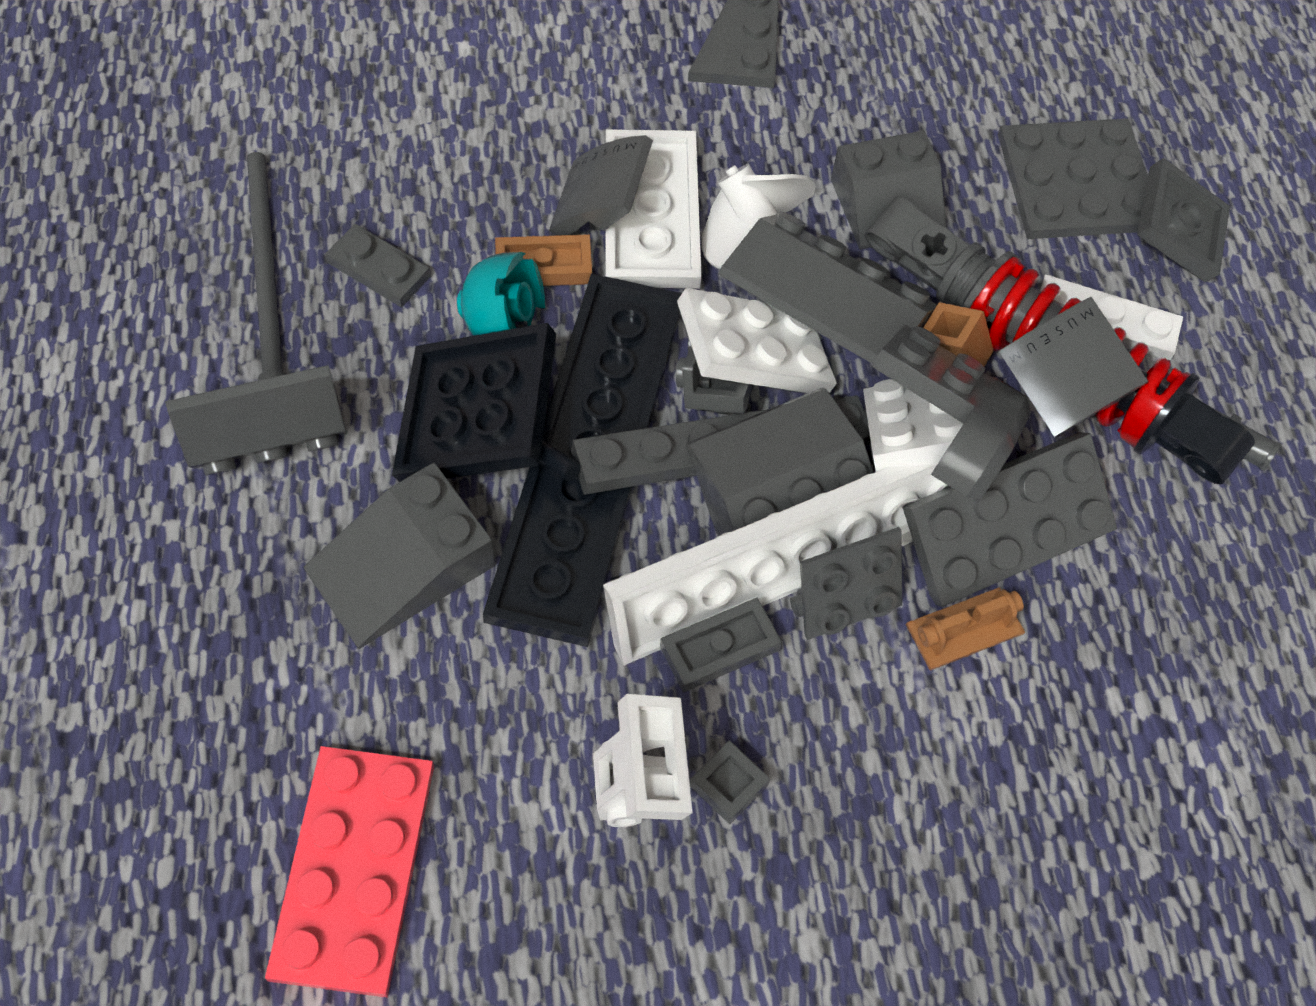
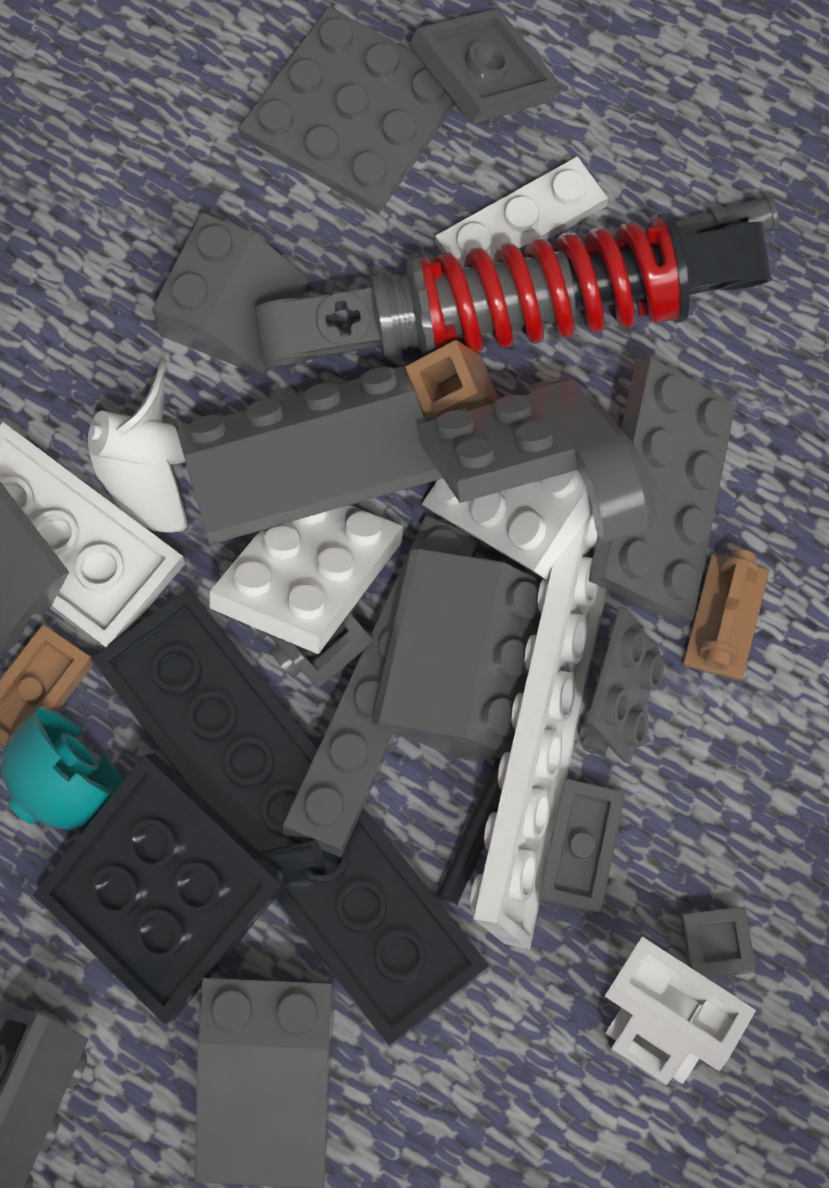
camera: 45 degrees left, 10 degrees up
(1073, 366) = (579, 314): dark grey slope -> none

